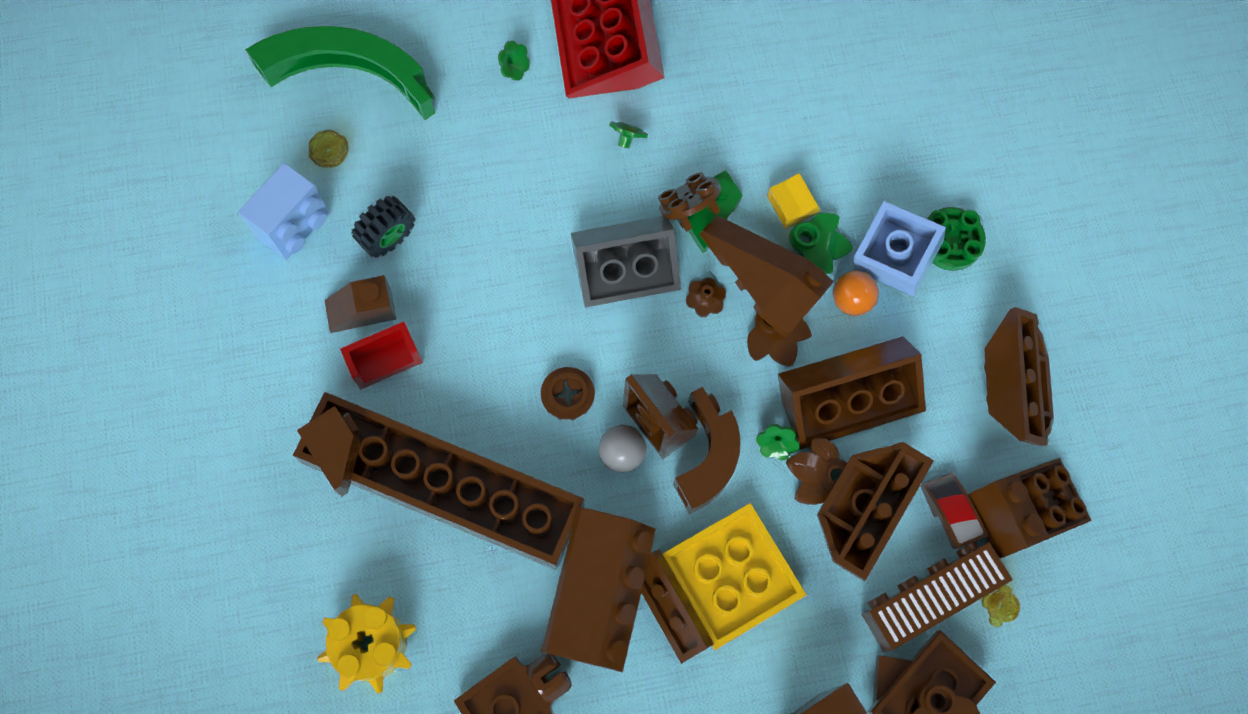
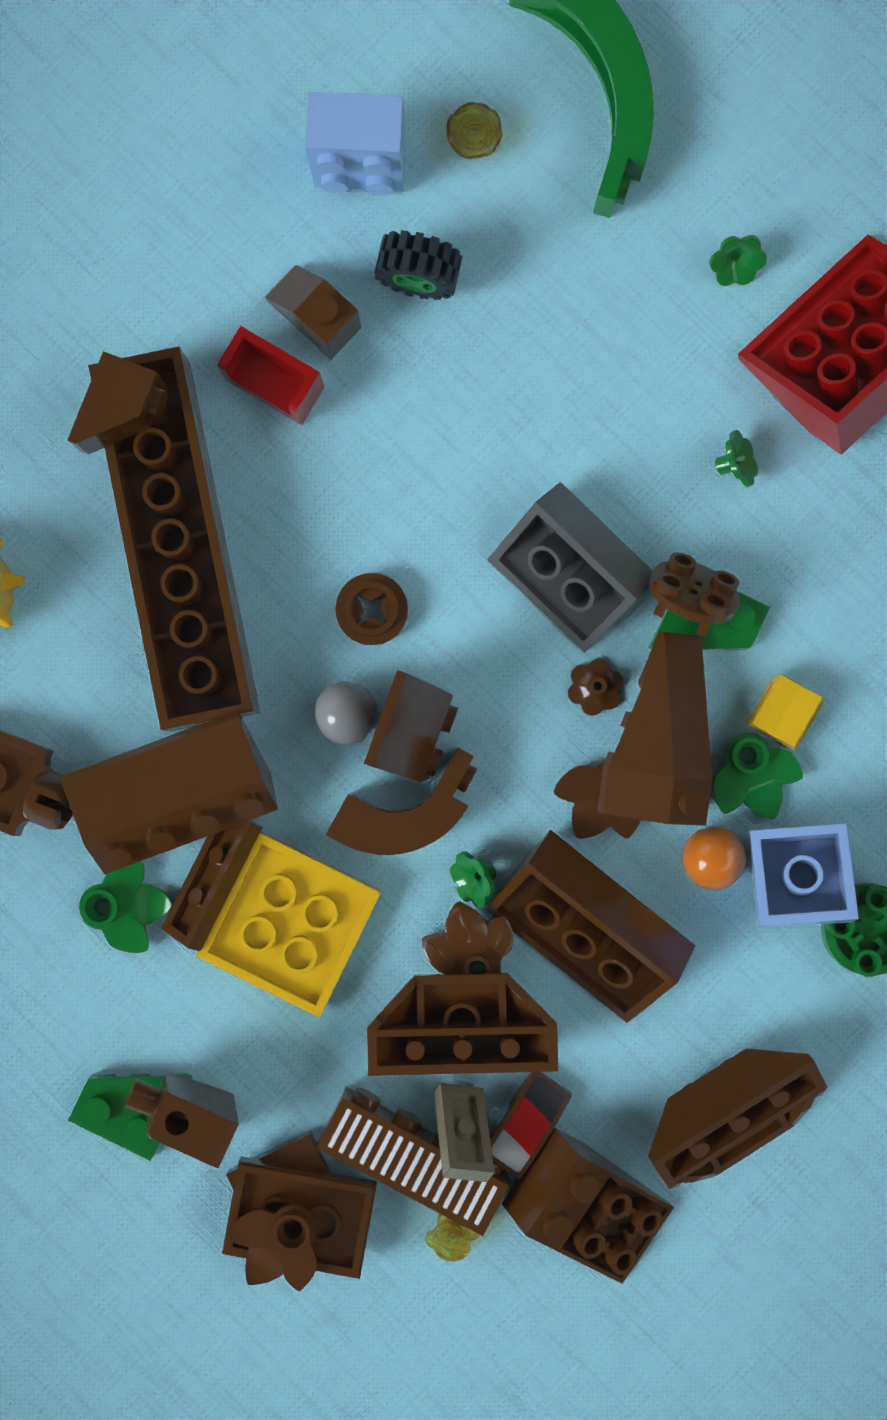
camera: 65 degrees right, 15 degrees up
(653, 675) = (131, 908): none -> green plate
(938, 548) = (463, 1133): none -> dark tan plate

